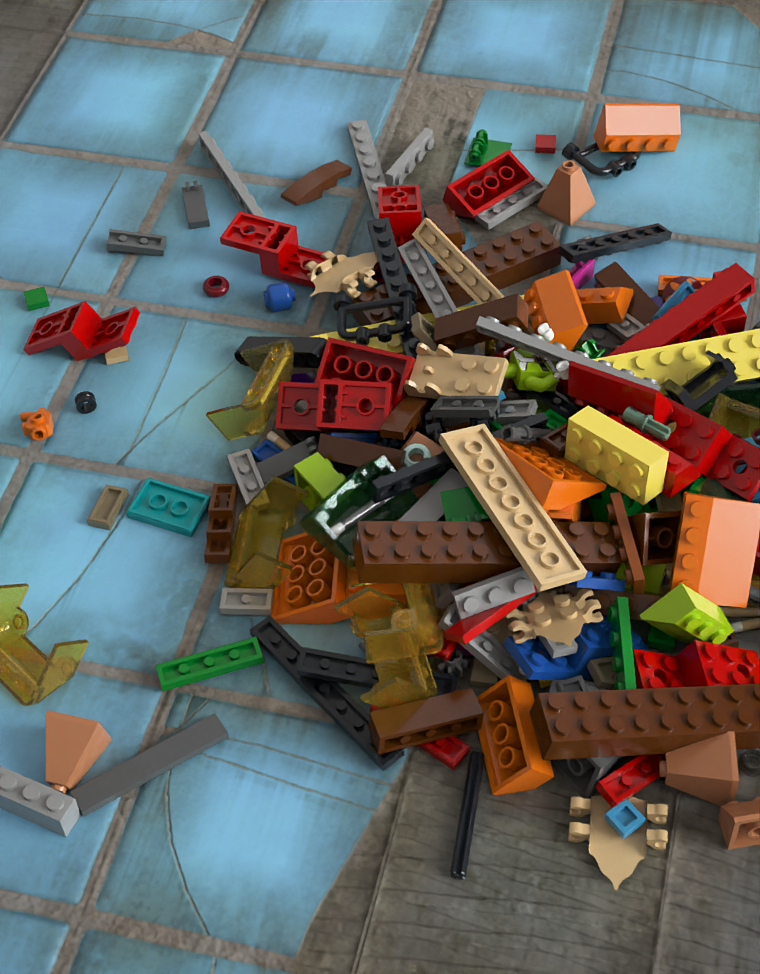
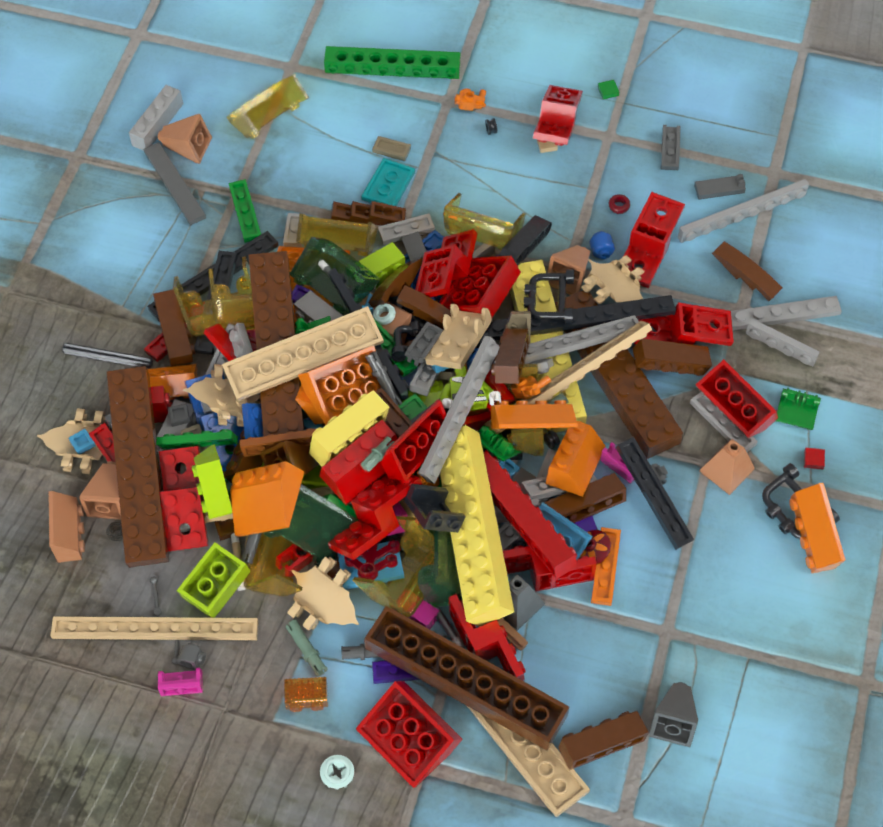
camera: 90 degrees right, 10 degrees up
(313, 314) = (571, 258): none -> nougat slope

